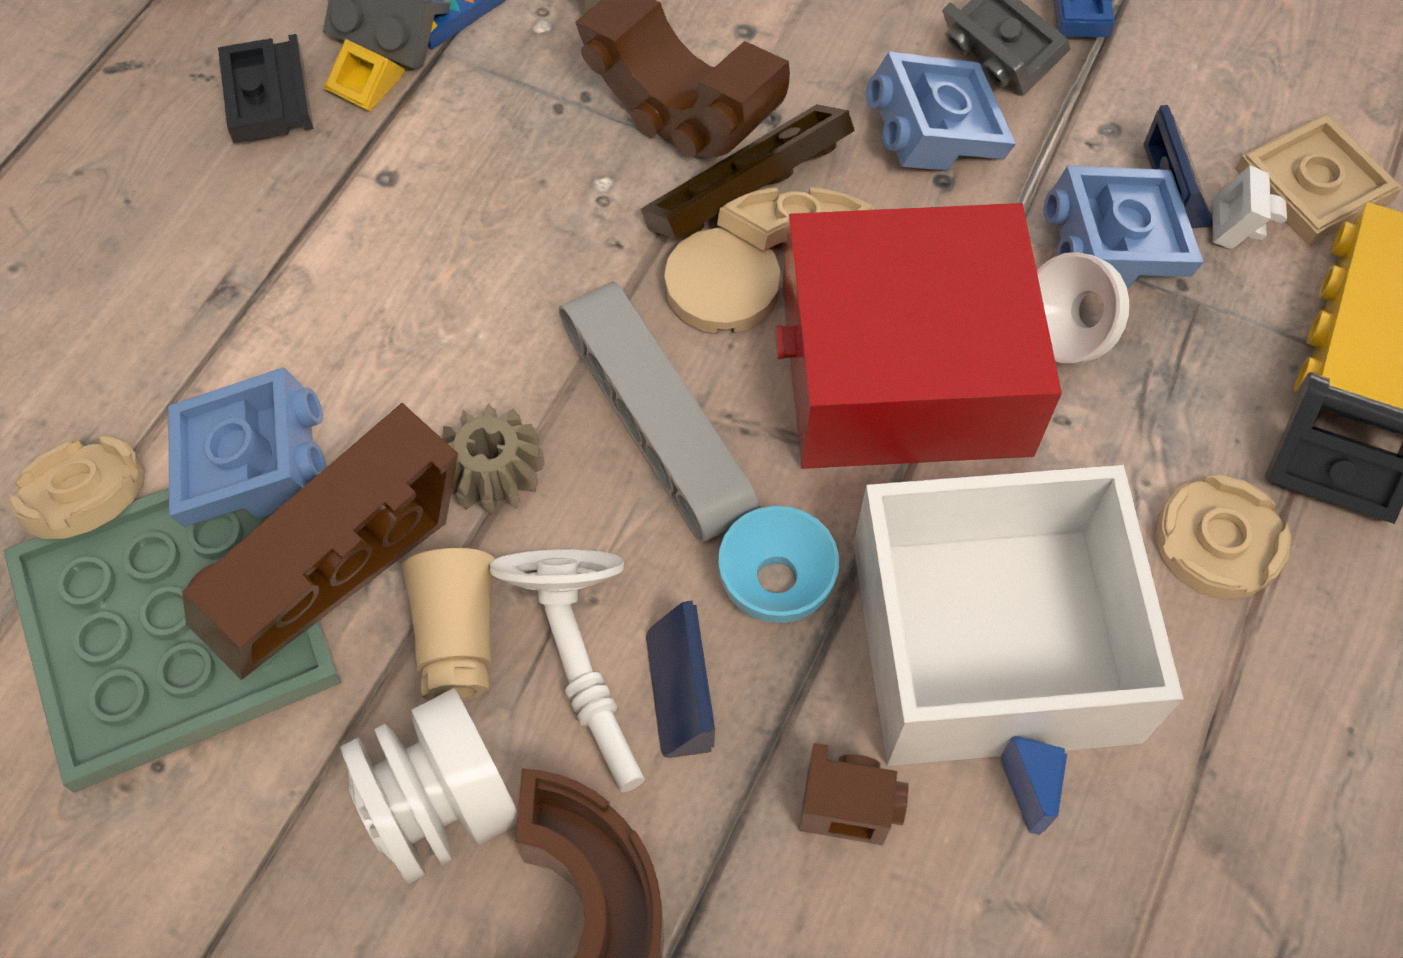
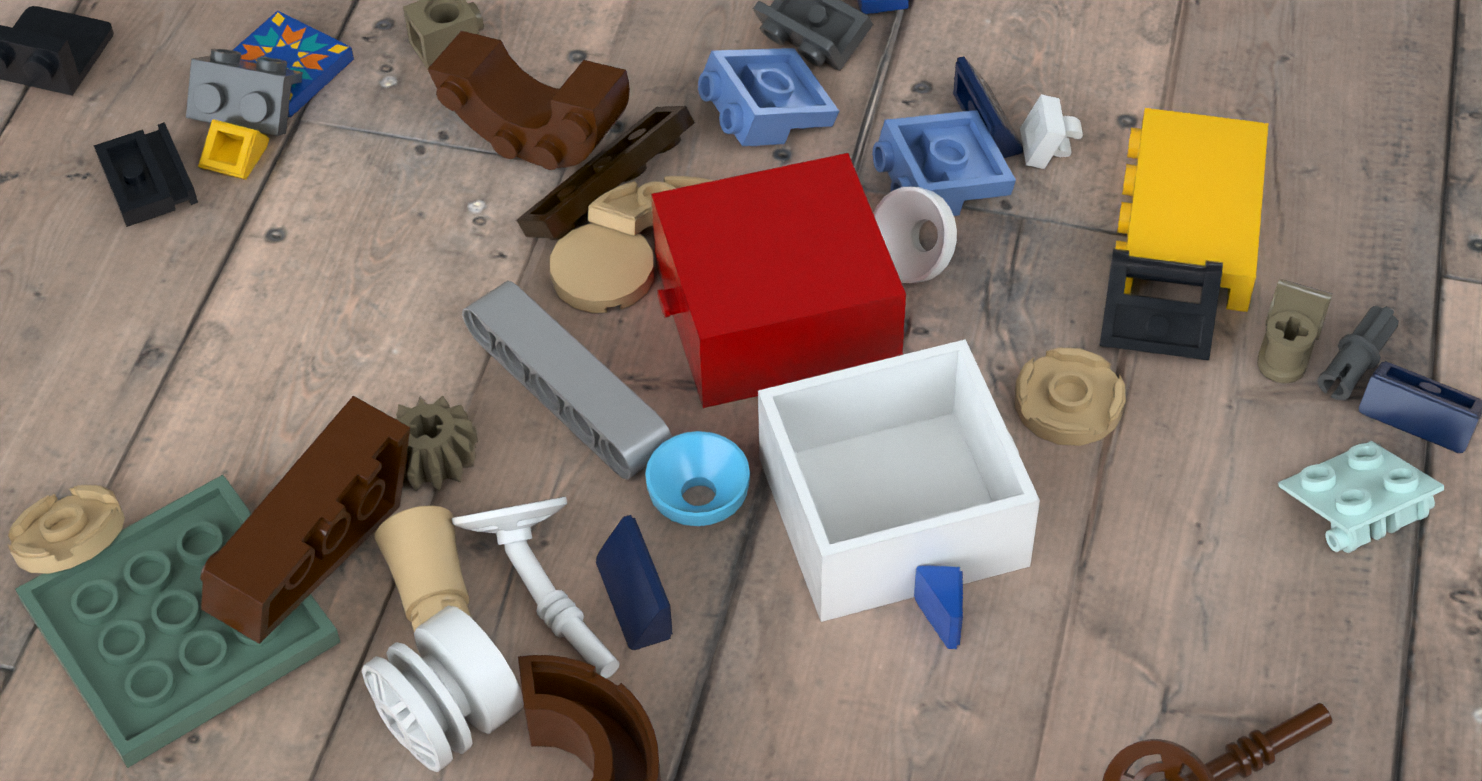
camera: 10 degrees left, 10 degrees down
(242, 448) = (213, 465): medium blue plate -> none
(851, 798) = (794, 643): reddish brown brick -> none
(1321, 177) = (1109, 95): tan tile -> none

